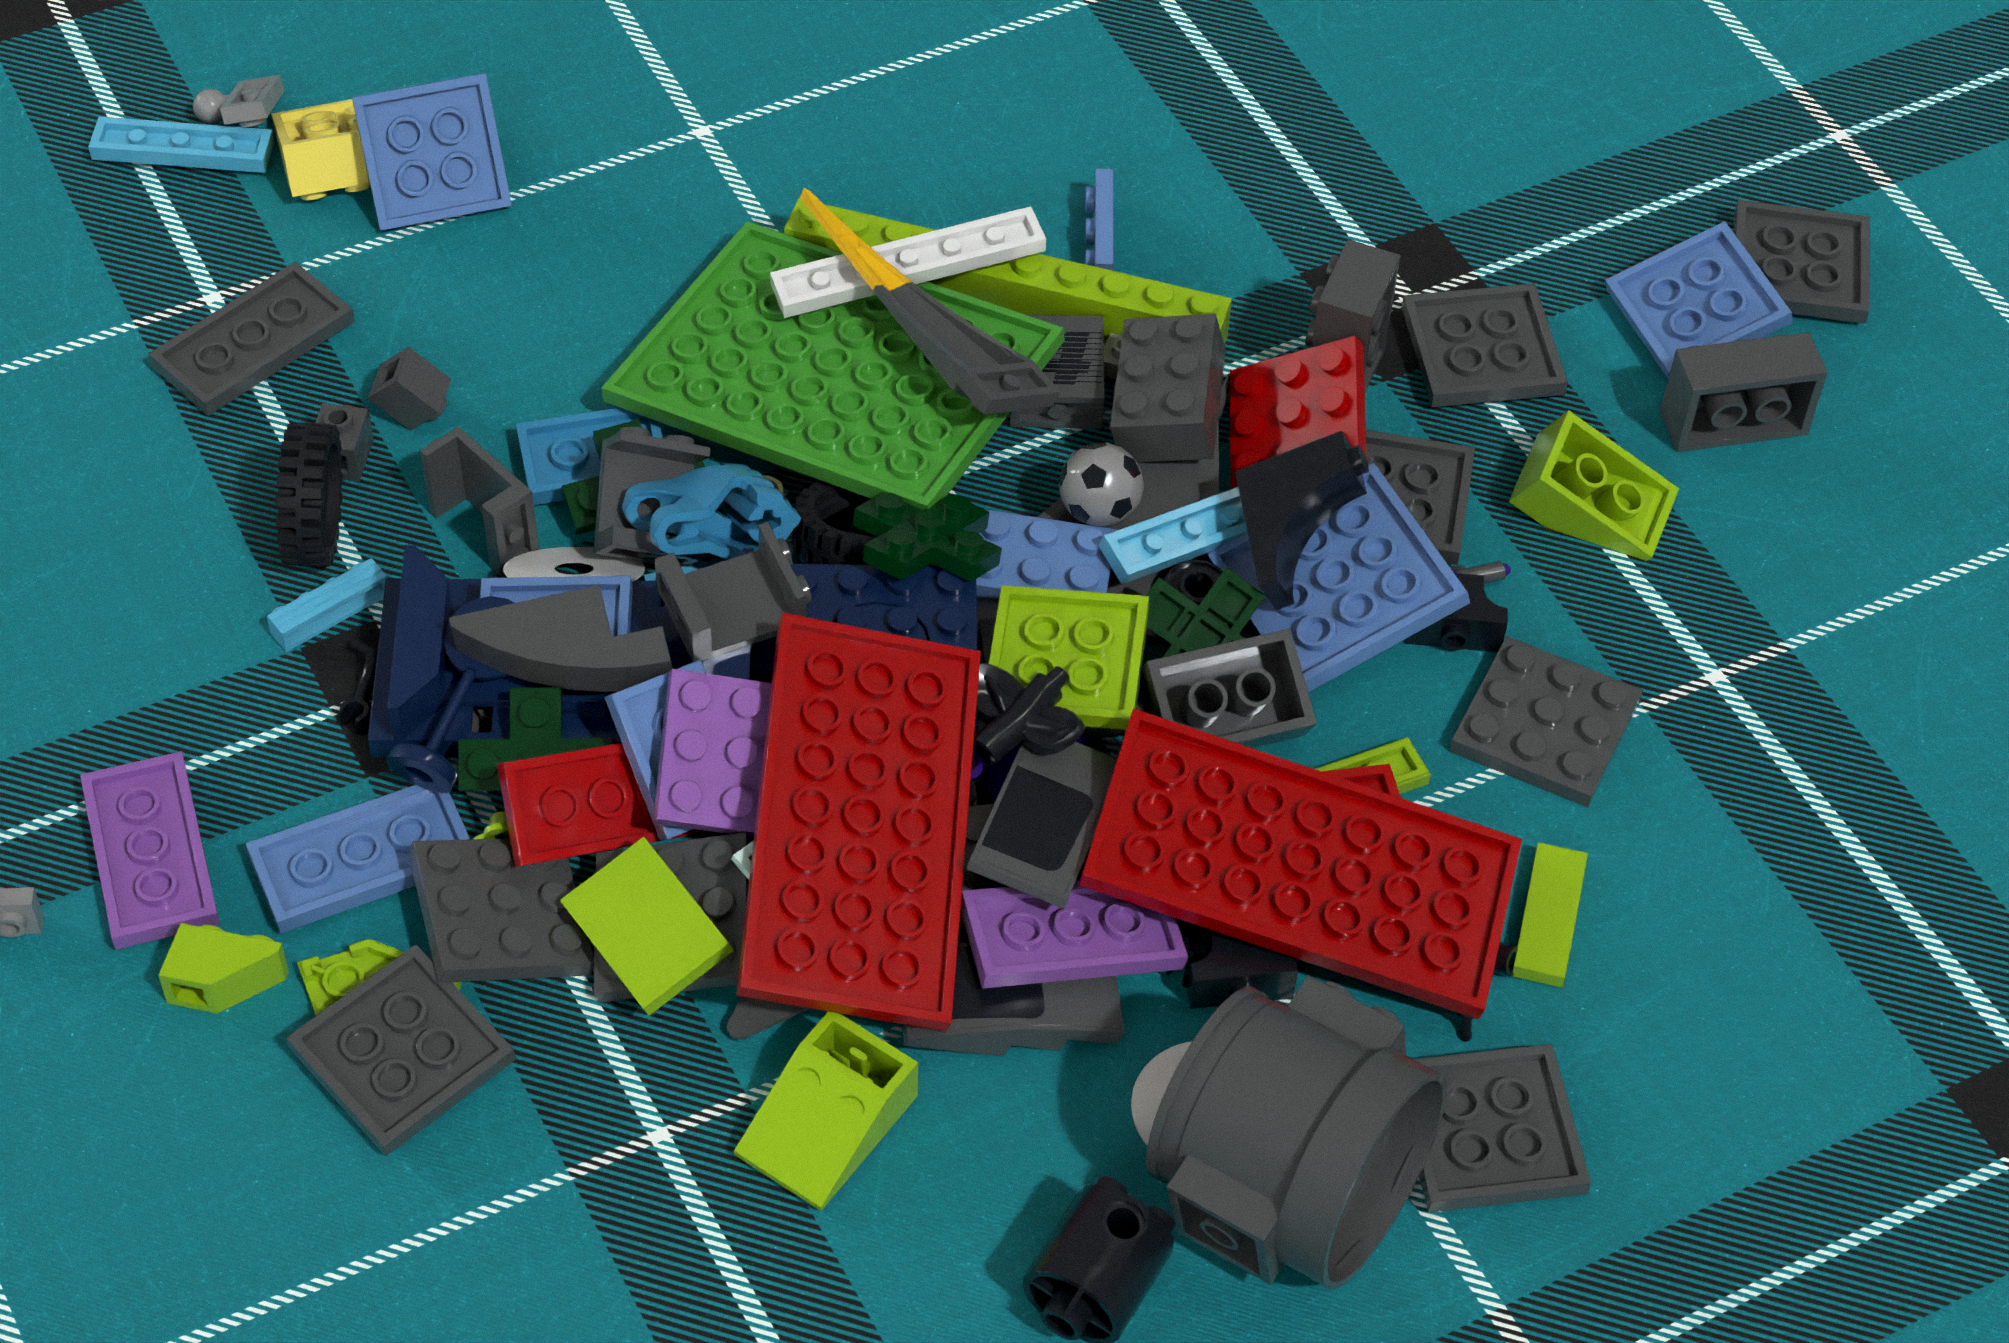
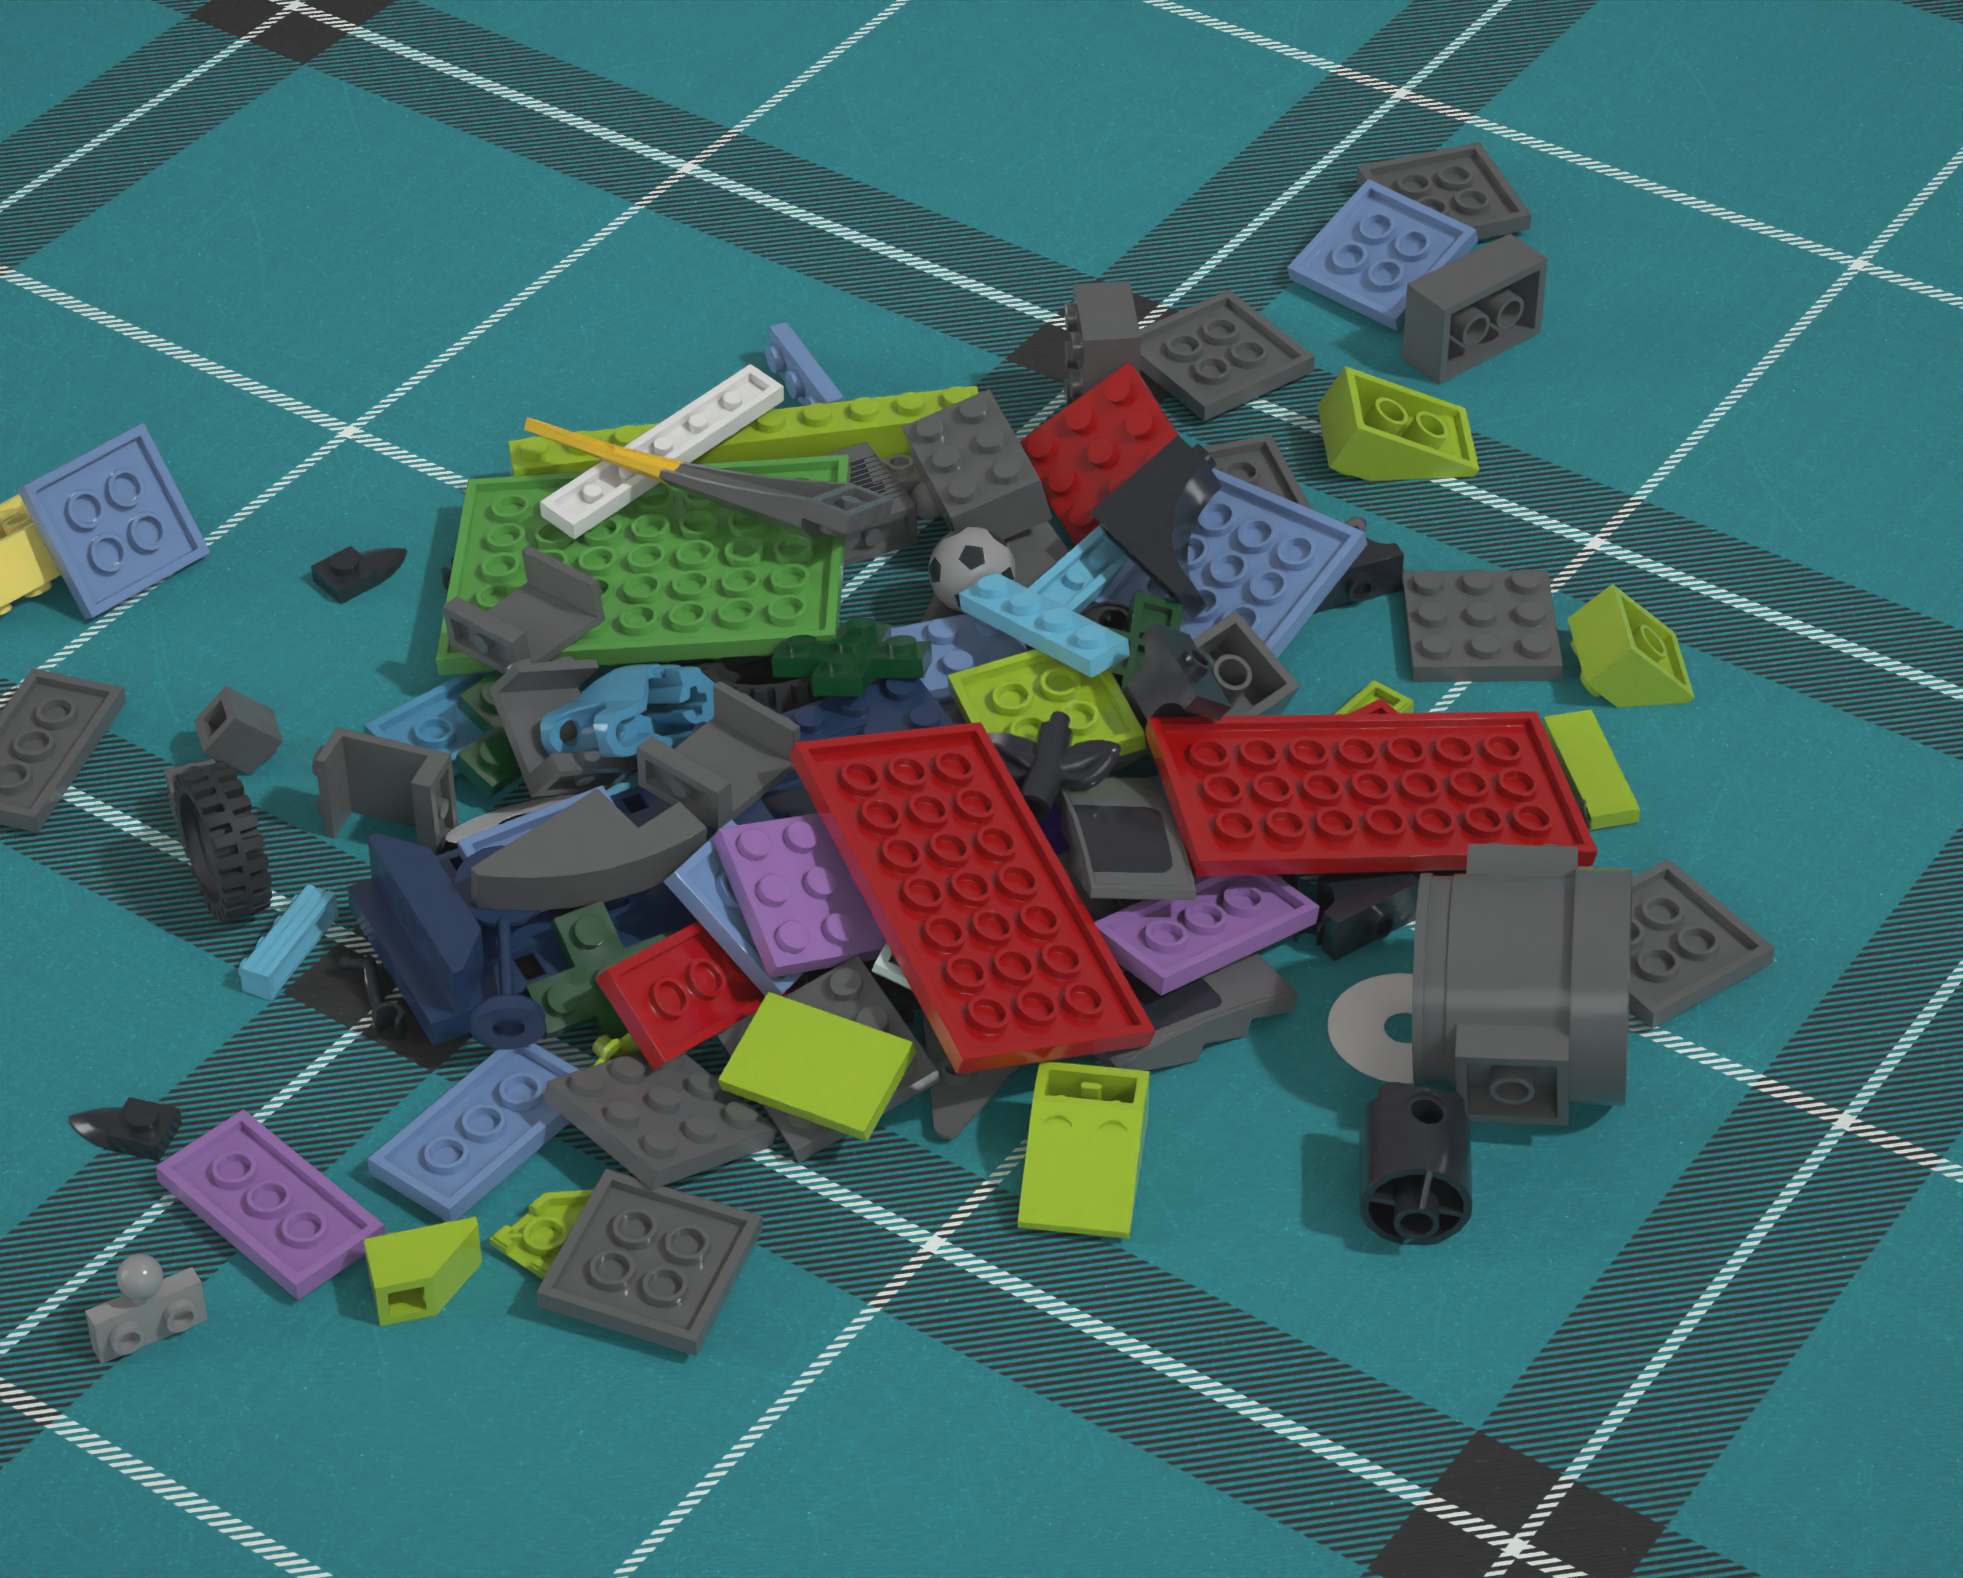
camera: 25 degrees left, 10 degrees down
(98, 726) = (135, 1129): none -> black plate
(613, 270) = (353, 573): none -> black plate
(692, 385) = (534, 620): none -> dark grey panel
(1112, 572) = (1044, 624): none -> medium azure plate
(1178, 680) = (1176, 678): none -> black brick
(1660, 811) = (1628, 653): none -> lime slope

